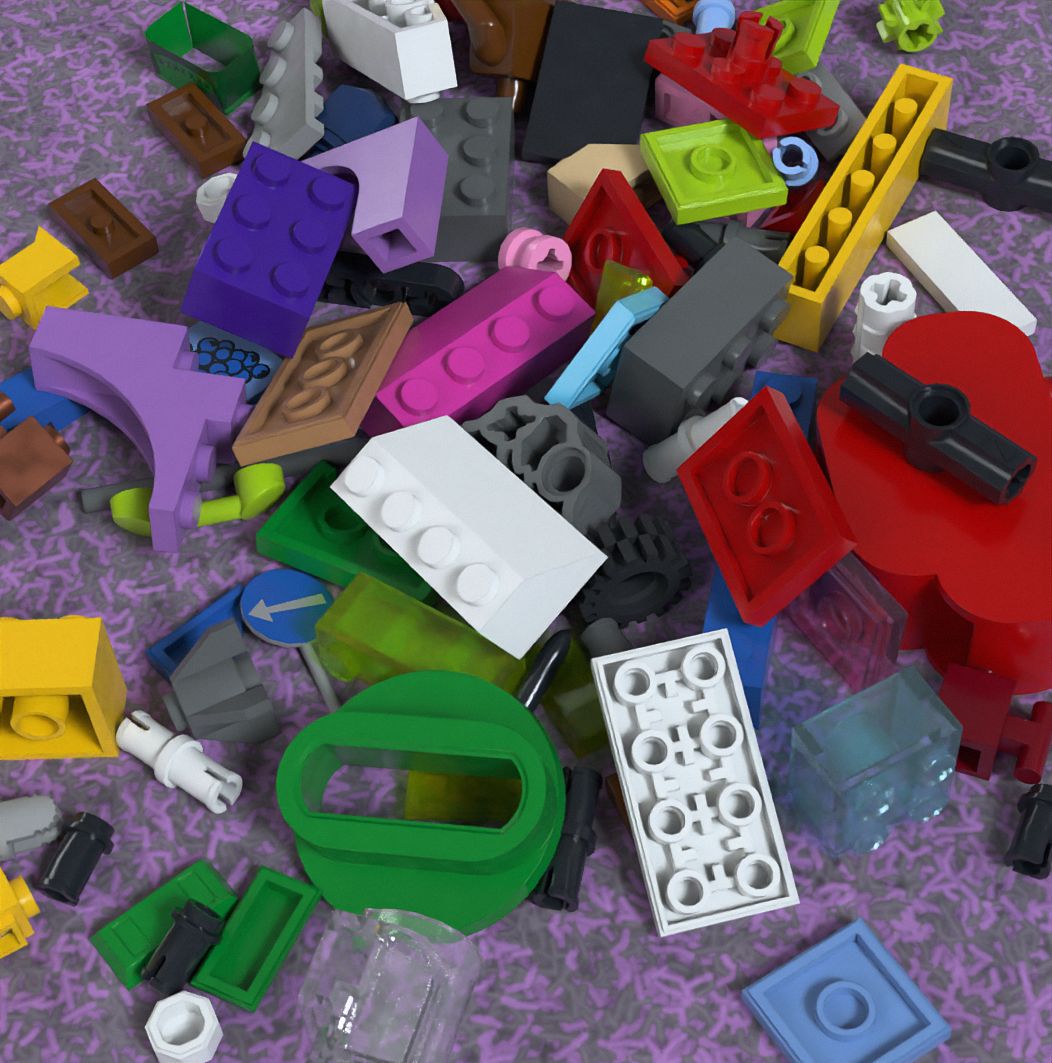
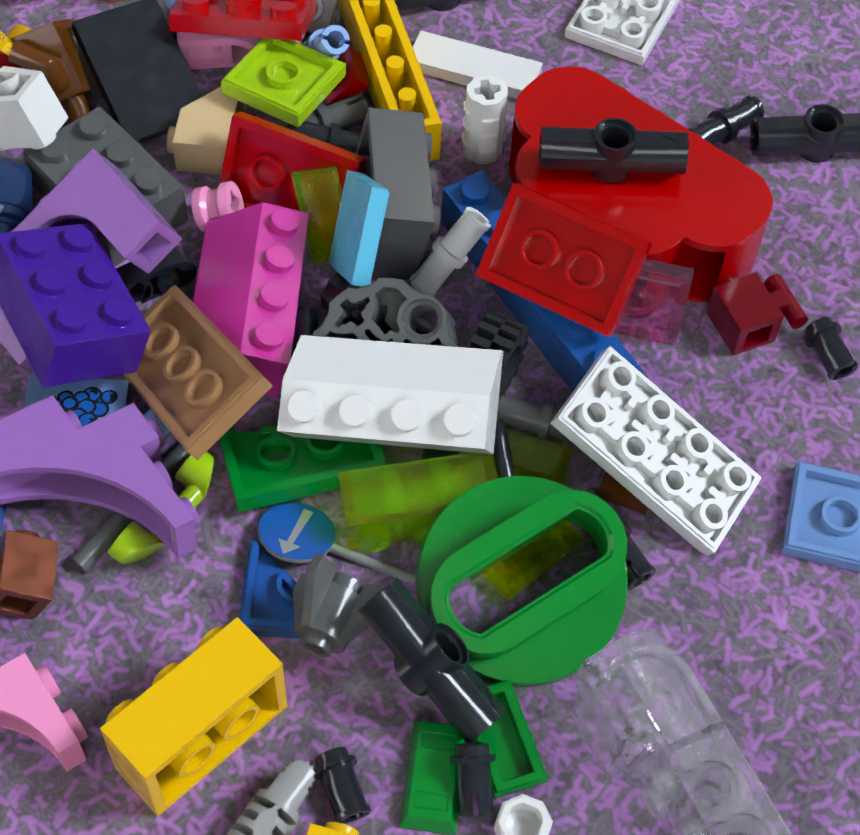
camera: 50 degrees left, 5 degrees up
(179, 761) = (339, 676): white pin -> none
(236, 831) = (432, 660): none -> black piece
(873, 763) = (741, 369): clear light blue brick -> none

